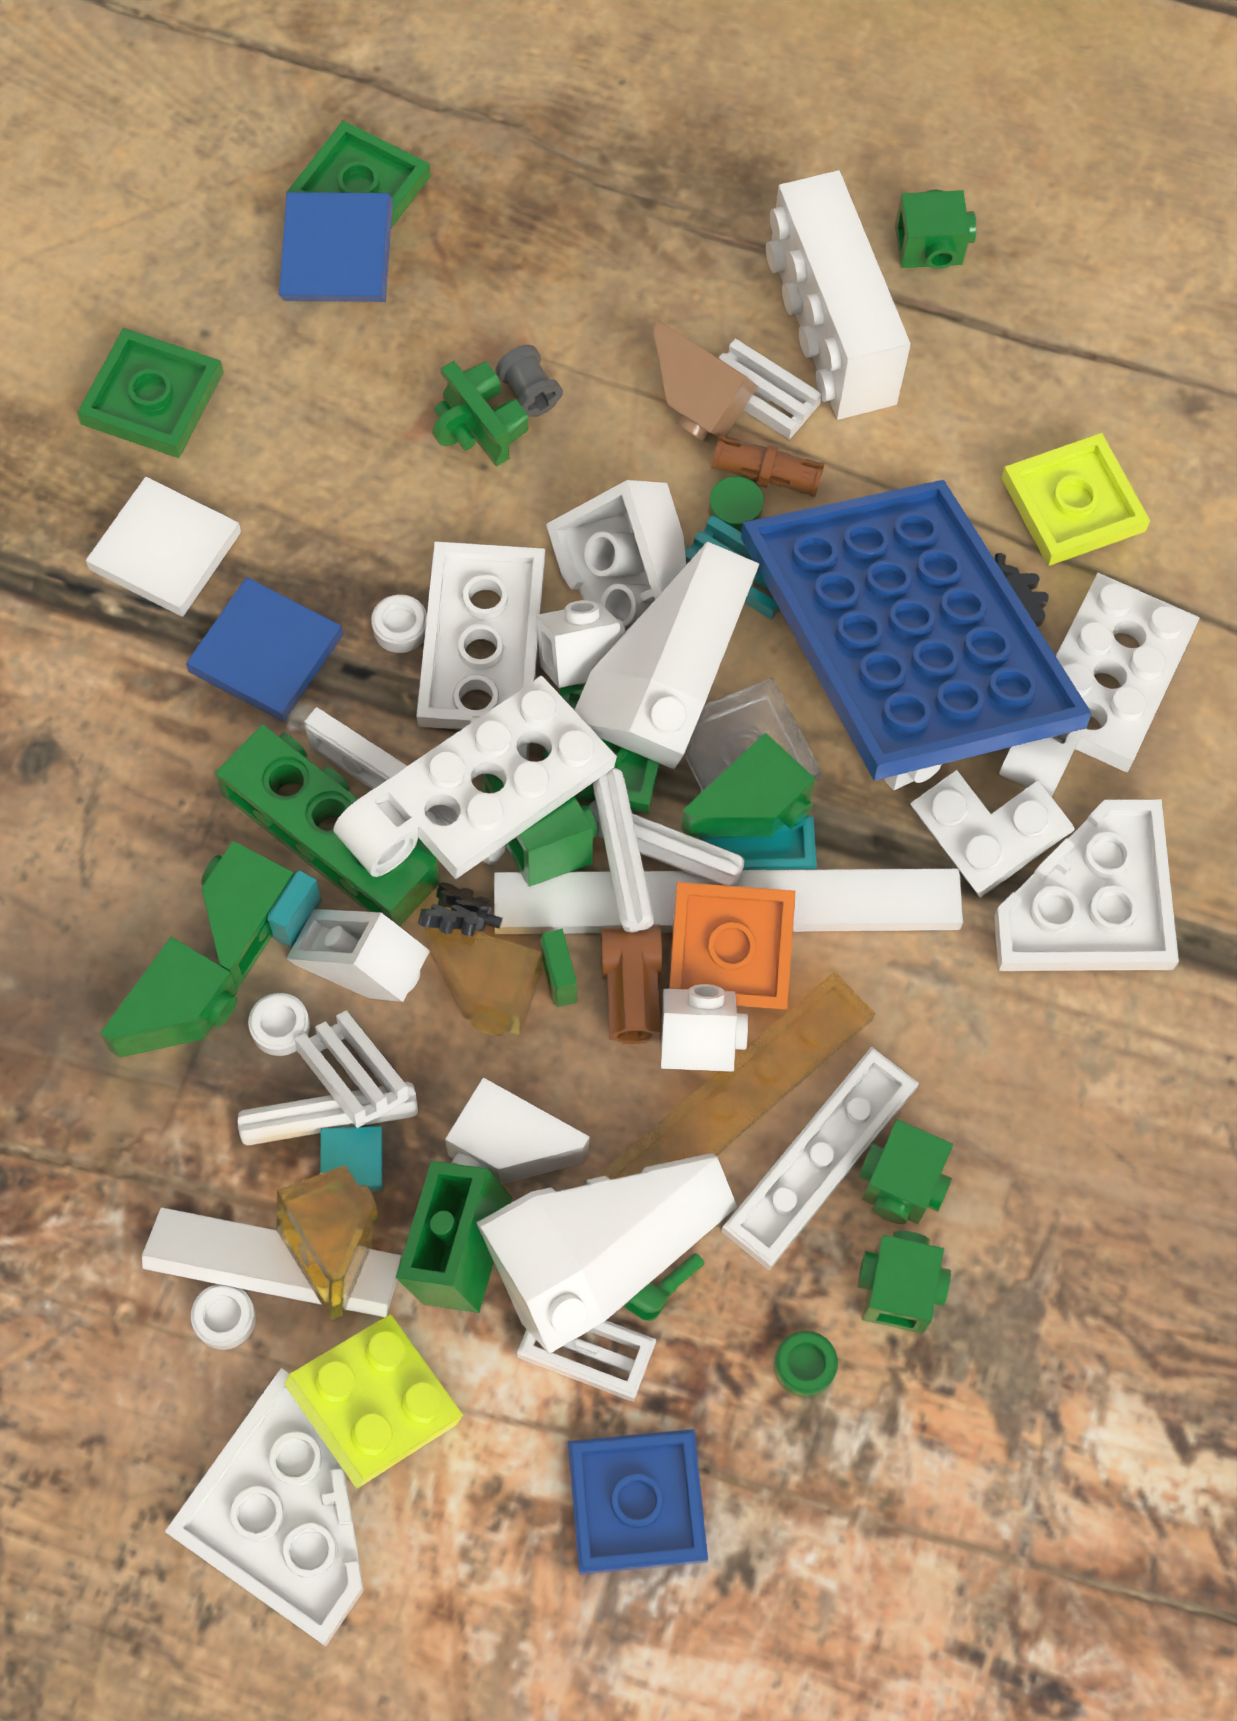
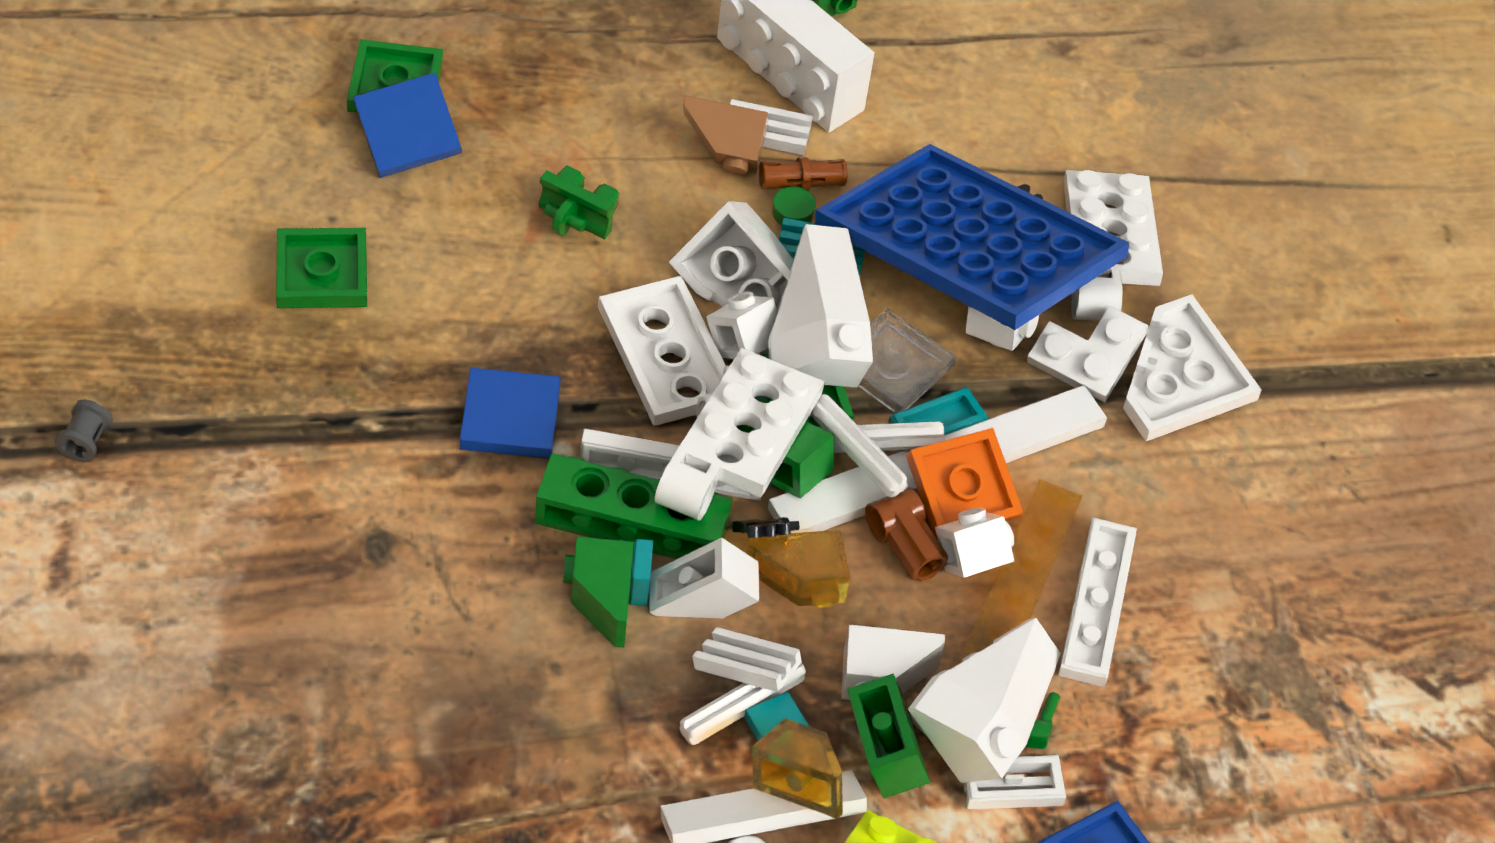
camera: 30 degrees left, 15 degrees down
(163, 546) = (392, 369): white tile -> none
(172, 1003) = (591, 664): green slope -> none
(276, 1022) = (670, 656): white tile -> none
(399, 623) = (599, 363): white tile -> none
(528, 380) = (601, 170): dark grey bush -> none
(558, 968) = (858, 542): green tile -> none
(752, 795) = (927, 380): green slope -> none
(805, 1363) = (1164, 733): green tile -> none
(903, 1281) = (1201, 653): green brick -> none
(906, 1174) = (1163, 584): green brick -> none
(1075, 499) = (1023, 129): neon yellow plate -> none

